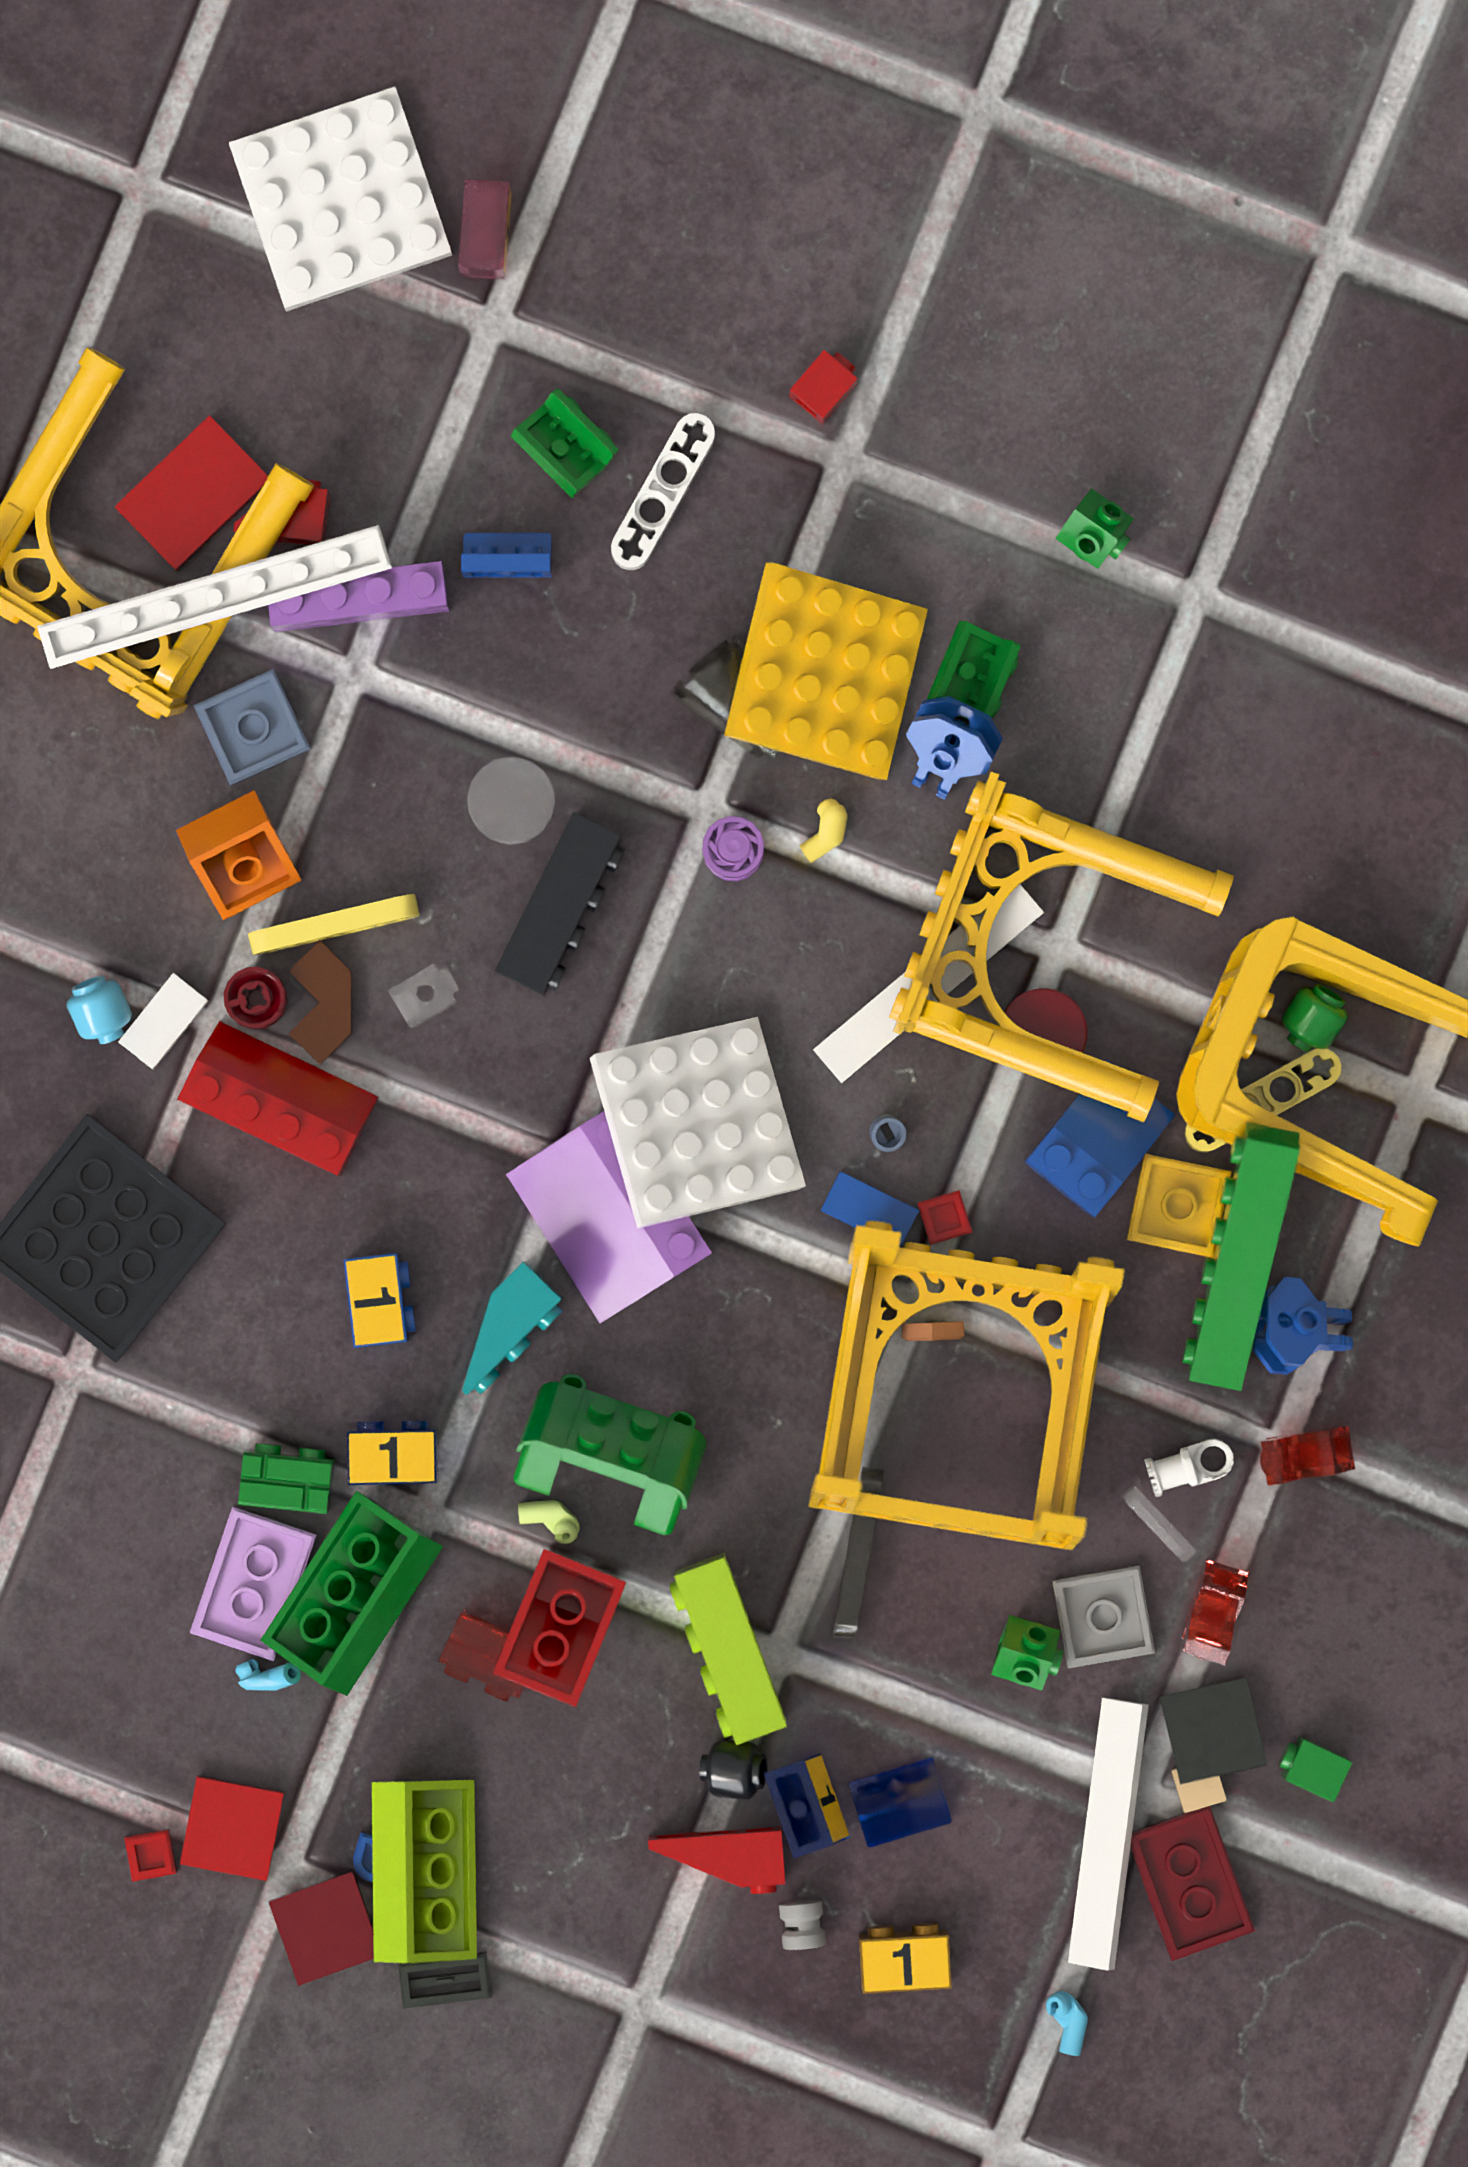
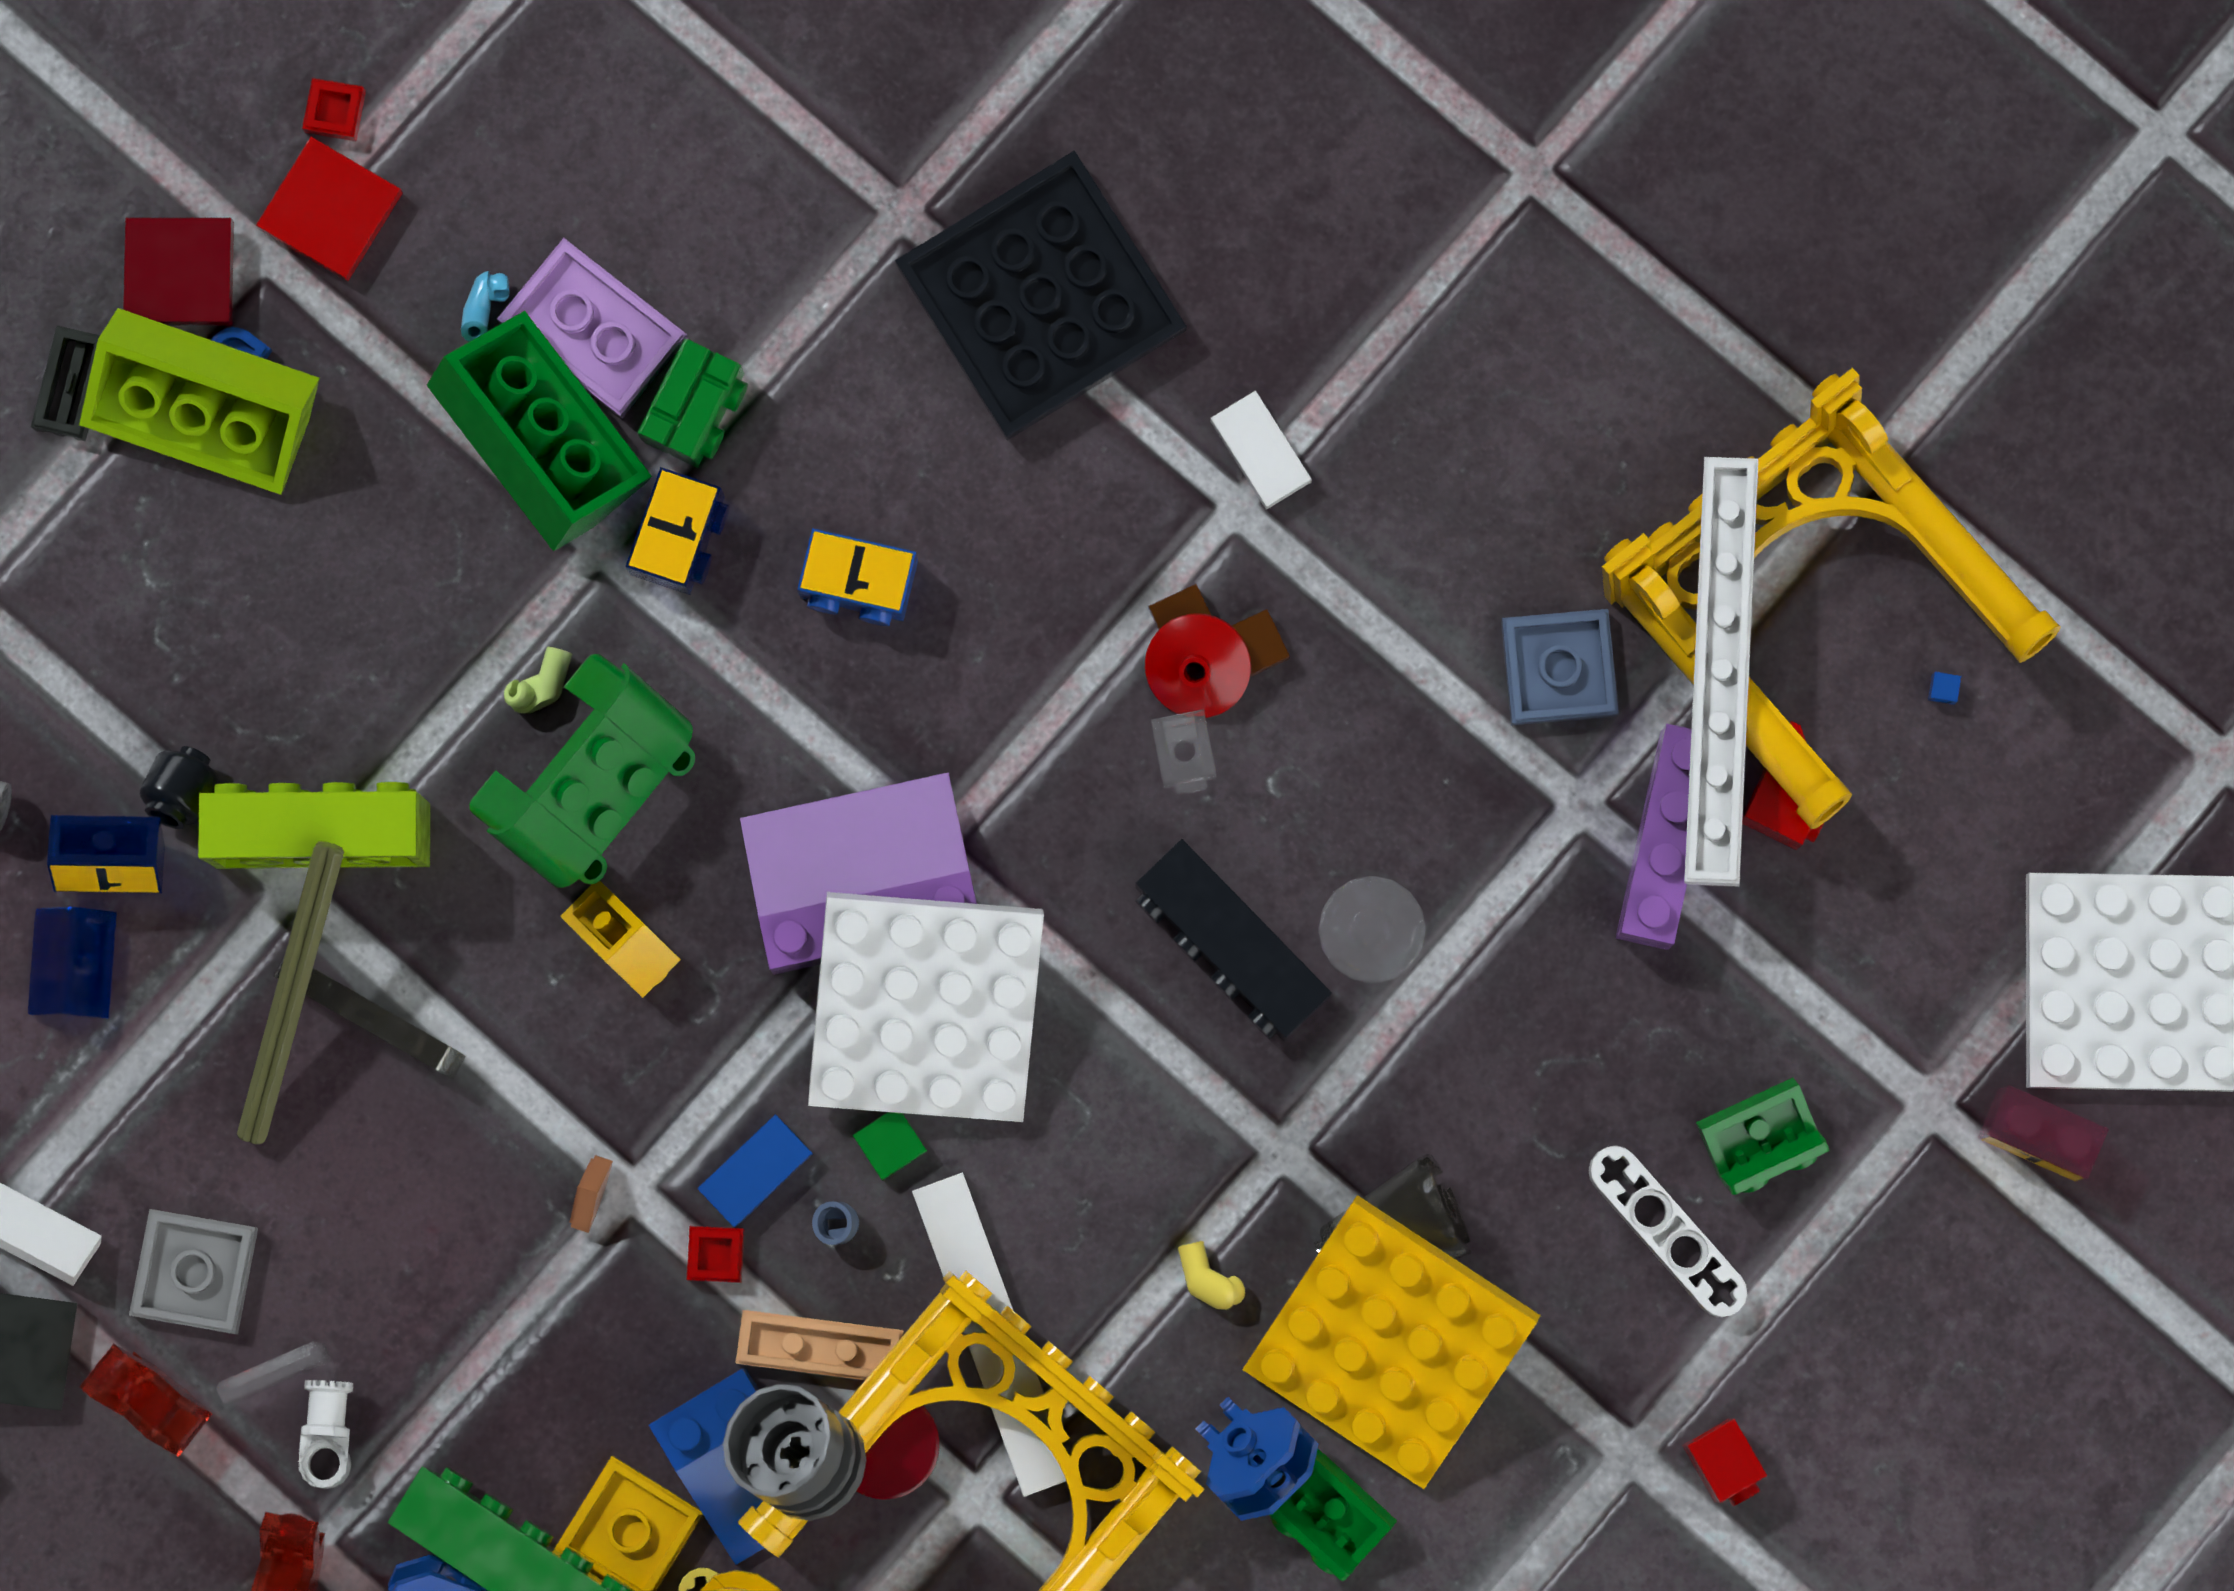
camera: 115 degrees right, 5 degrees down
(99, 1009) = (1299, 381): medium azure head -> none
(162, 423) = (1944, 688): none -> blue piece
(192, 493) = (1851, 693): red tile -> none
(238, 855) = (1419, 598): orange slope -> none
(255, 998) = (1249, 561): dark red wheel -> none
(278, 1098) = (1125, 545): red slope -> none
(333, 924) = (1301, 678): light yellow beam -> none
(333, 1009) = (1204, 641): none -> red dish
(474, 1652) = (410, 559): clear red brick -> none
(507, 555) = (1656, 1024): blue bracket -> none
(511, 1315) = (785, 718): teal slope -> none
(559, 1628) = (409, 645): red slope -> none
(727, 1381) = (620, 938): none -> yellow slope
(733, 848) = (1226, 1163): medium lavender wheel -> none
(736, 1855) = (83, 752): red slope -> none
(811, 1114) = (889, 1144): none -> green tile
(863, 1618) = (290, 992): none -> olive axle
(986, 1115) = (813, 1345): none -> light nougat tile
(1027, 1653) = (182, 1167): green brick -> none
(1074, 1115) = (794, 1452): none -> dark grey wheel
(1083, 1298) = (553, 1376): yellow arch -> none

